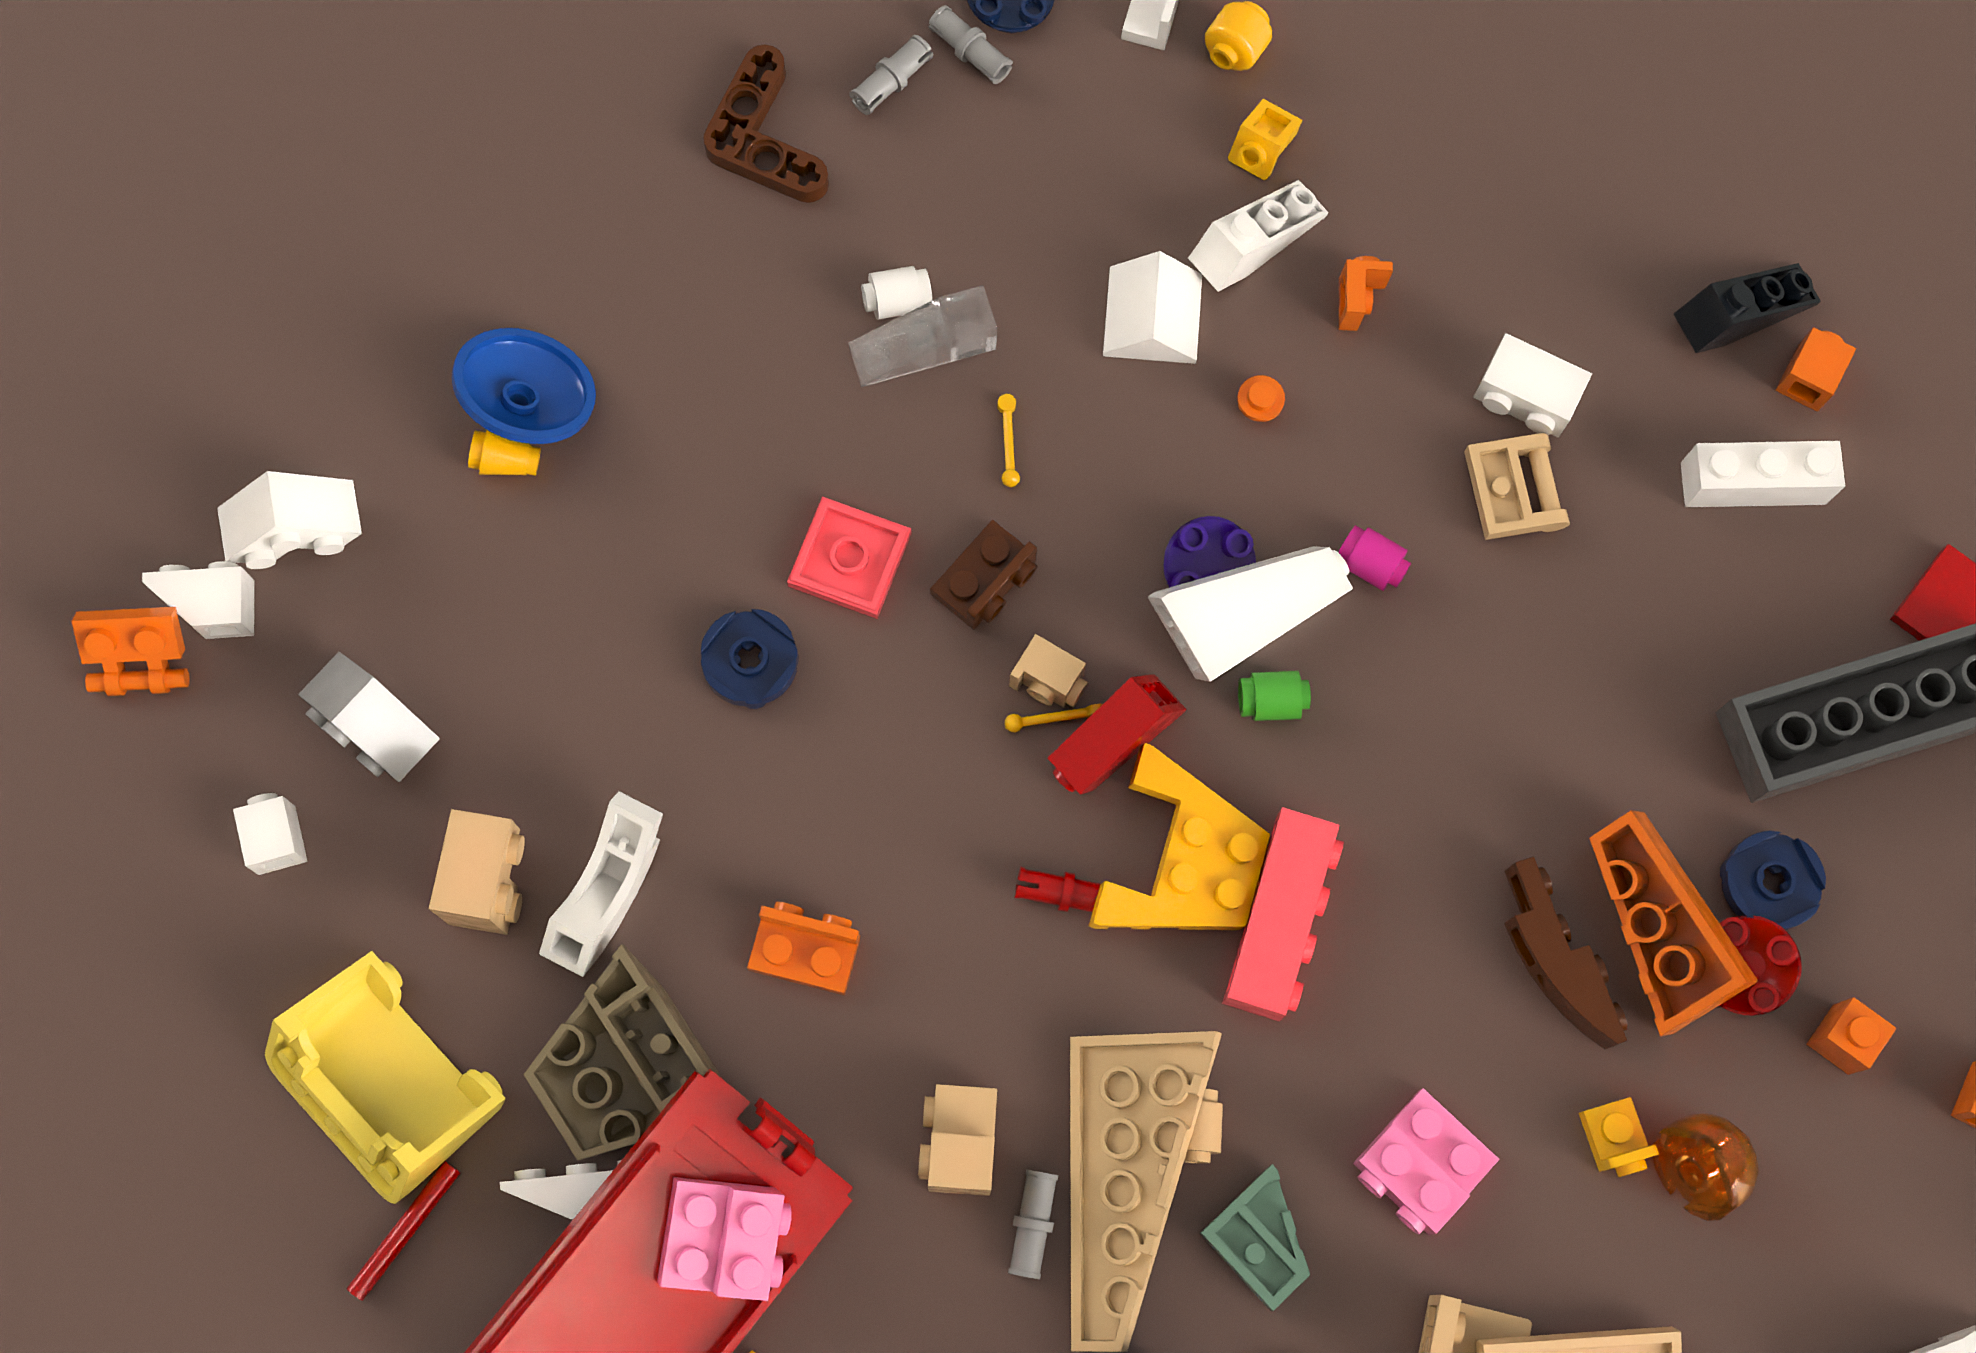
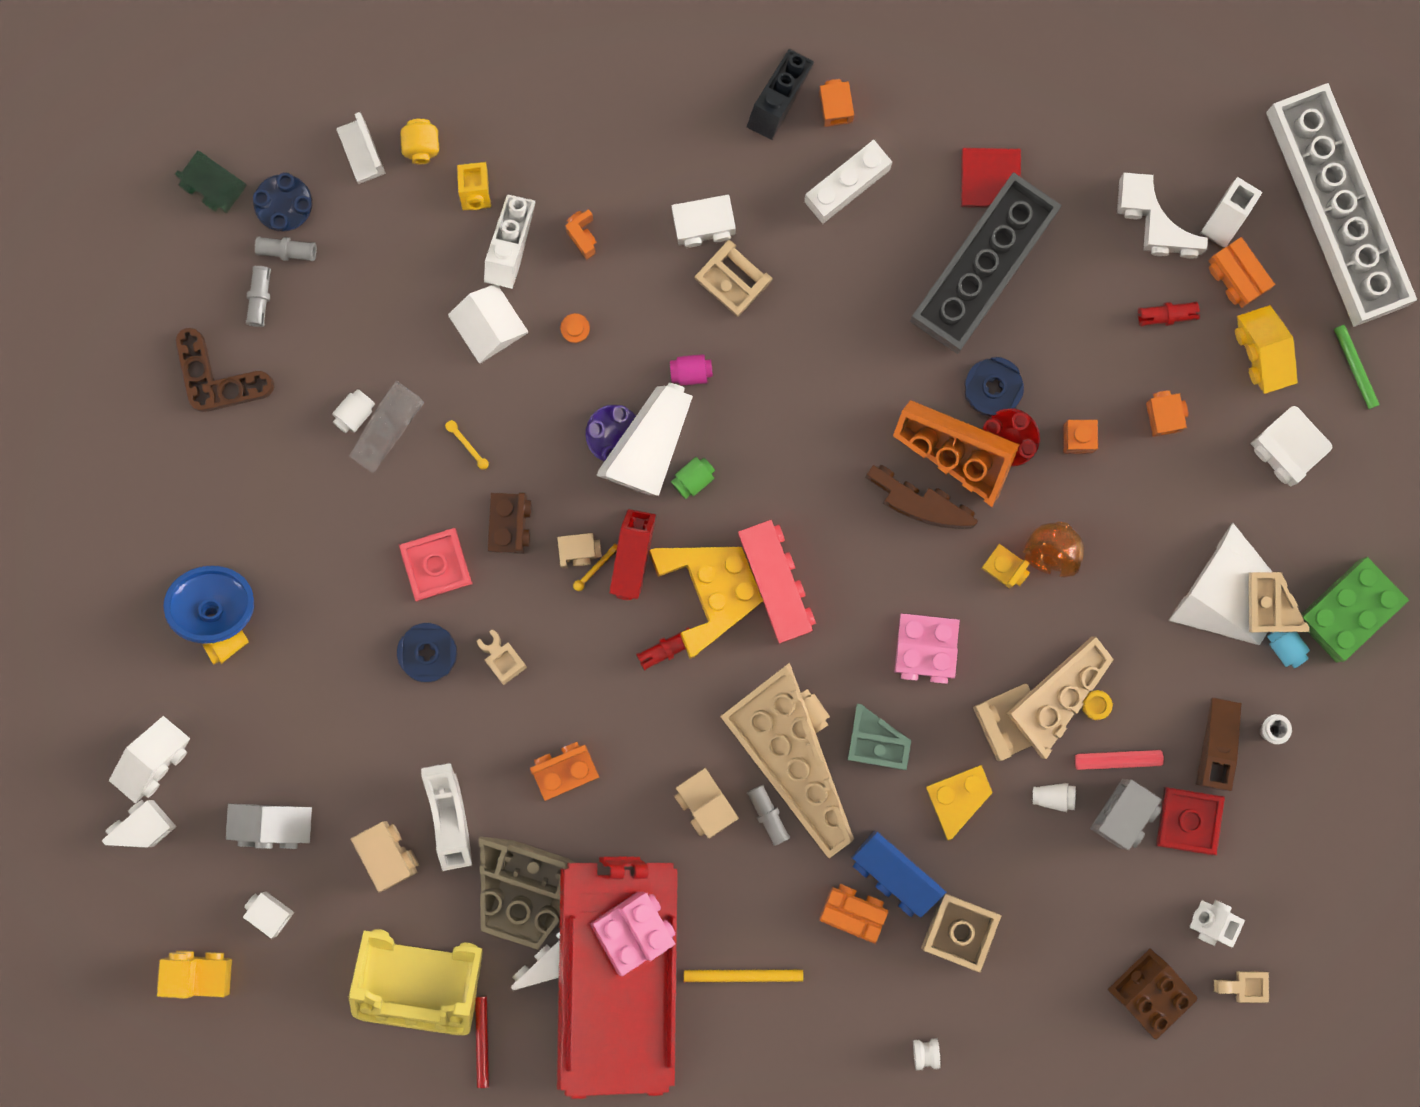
camera: 30 degrees left, 10 degrees up
(100, 830) = (187, 975): none -> yellow brick
(127, 637) = (121, 875): orange plate -> none
(839, 741) = (503, 659): none -> tan plate

